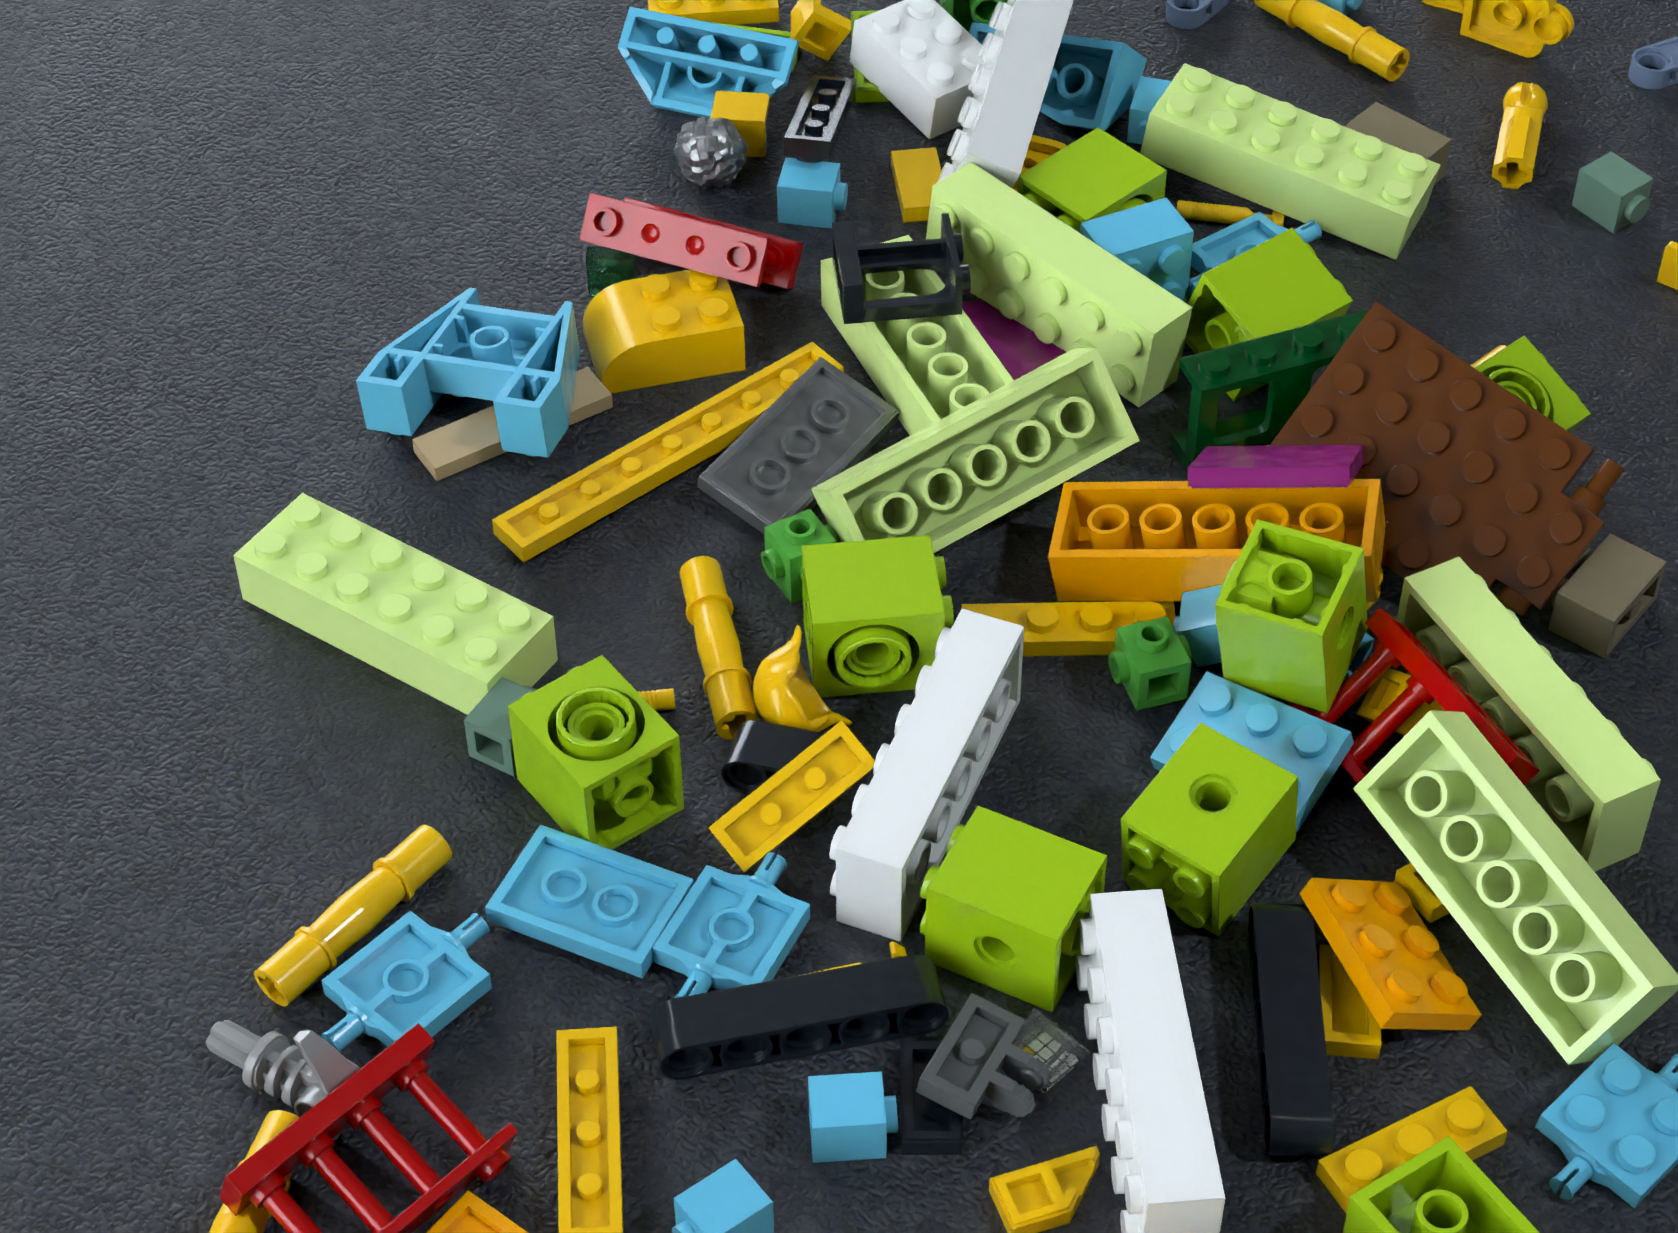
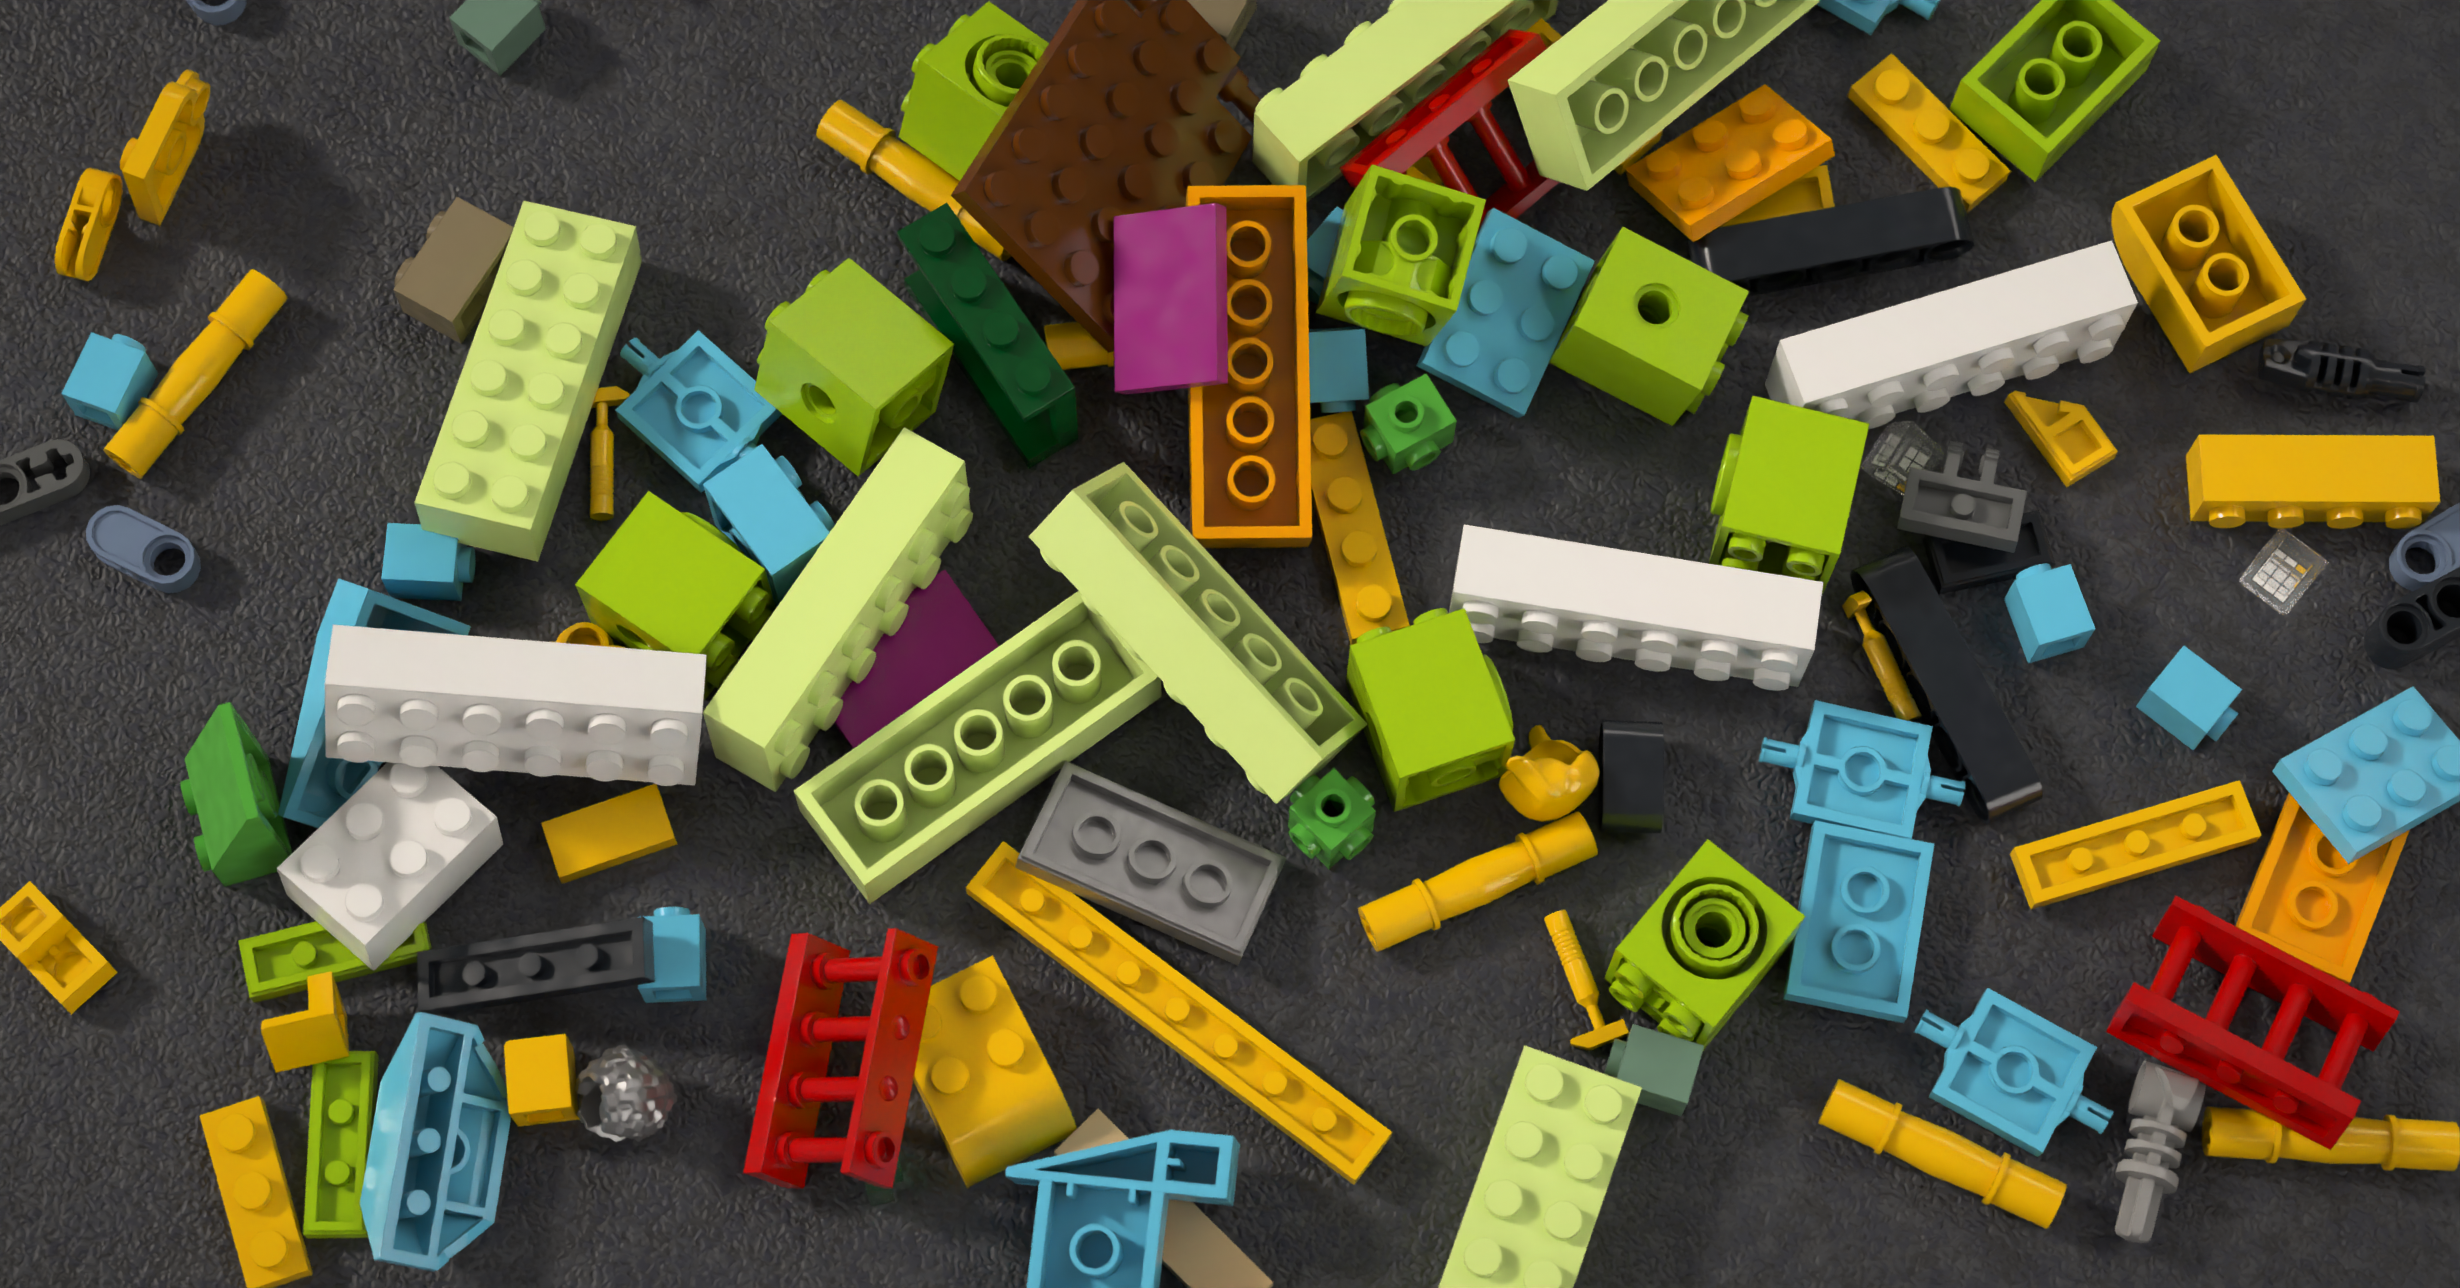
camera: 105 degrees left, 25 degrees up
(793, 796) = (1700, 737): yellow plate -> none
(938, 255) = (915, 712): black panel -> none
(1519, 134) = (393, 132): yellow piece -> none

